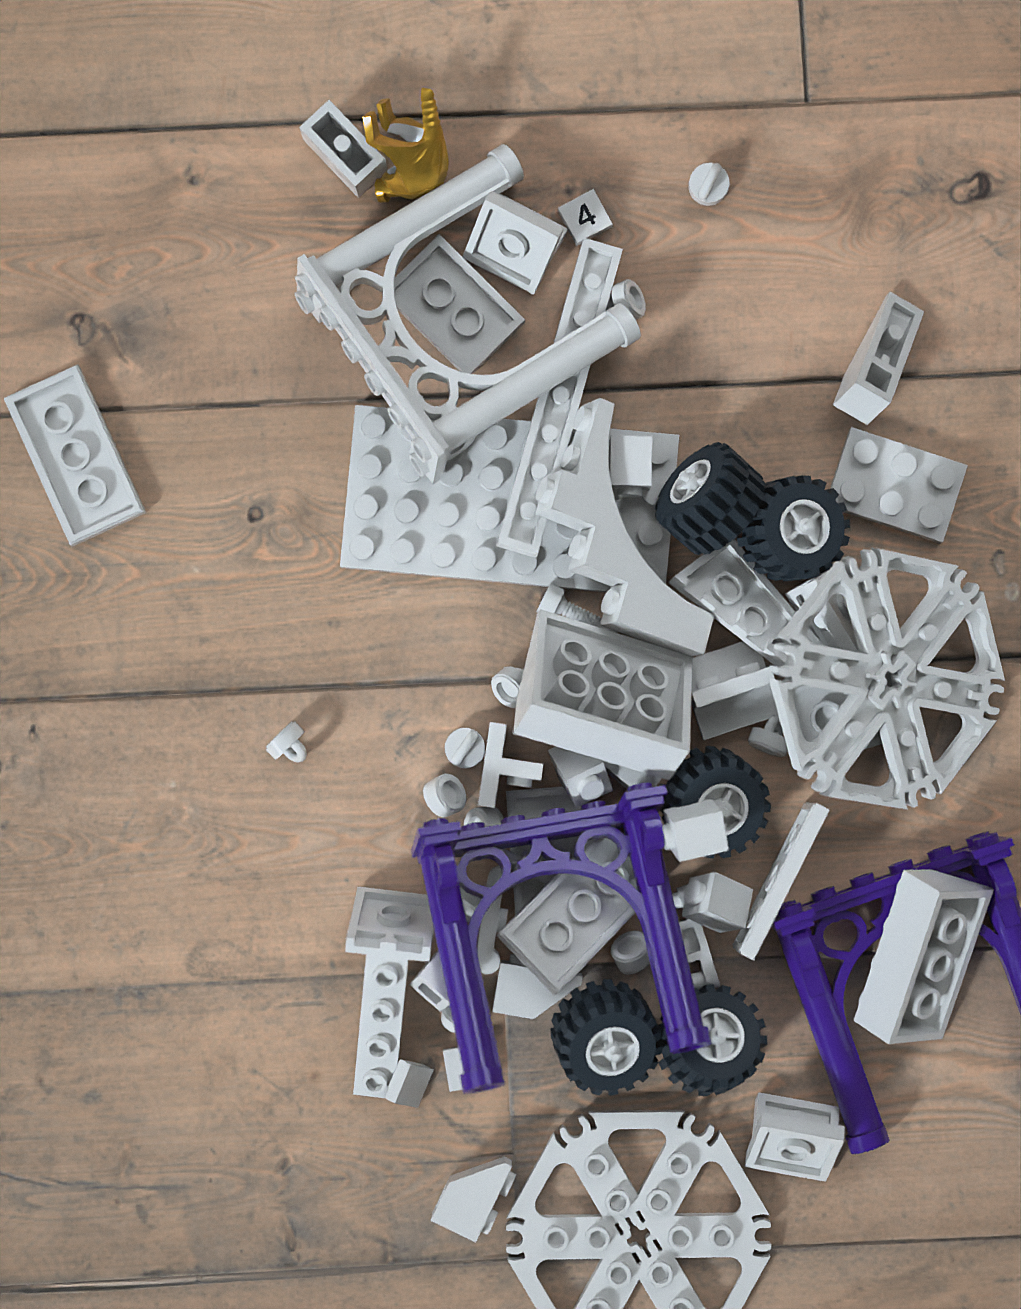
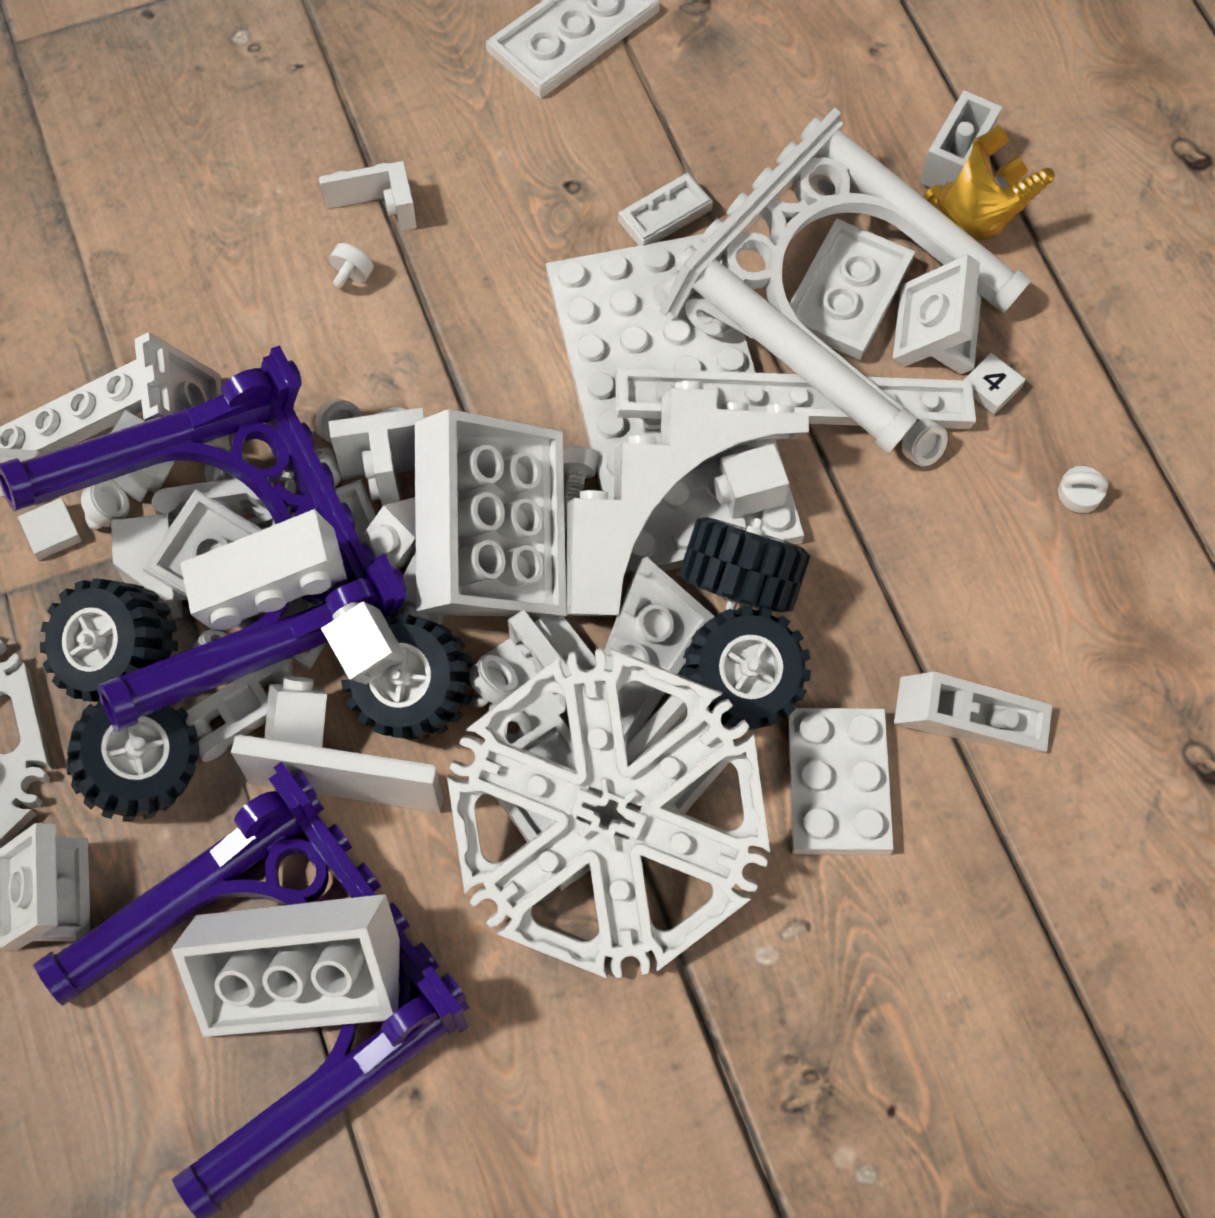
camera: 70 degrees right, 20 degrees down
(228, 679) = (369, 184): none -> white bracket
(318, 440) = (665, 210): none -> white plate
(608, 895) = (263, 571): none -> white brick
(736, 735) = (491, 680): none -> white tile

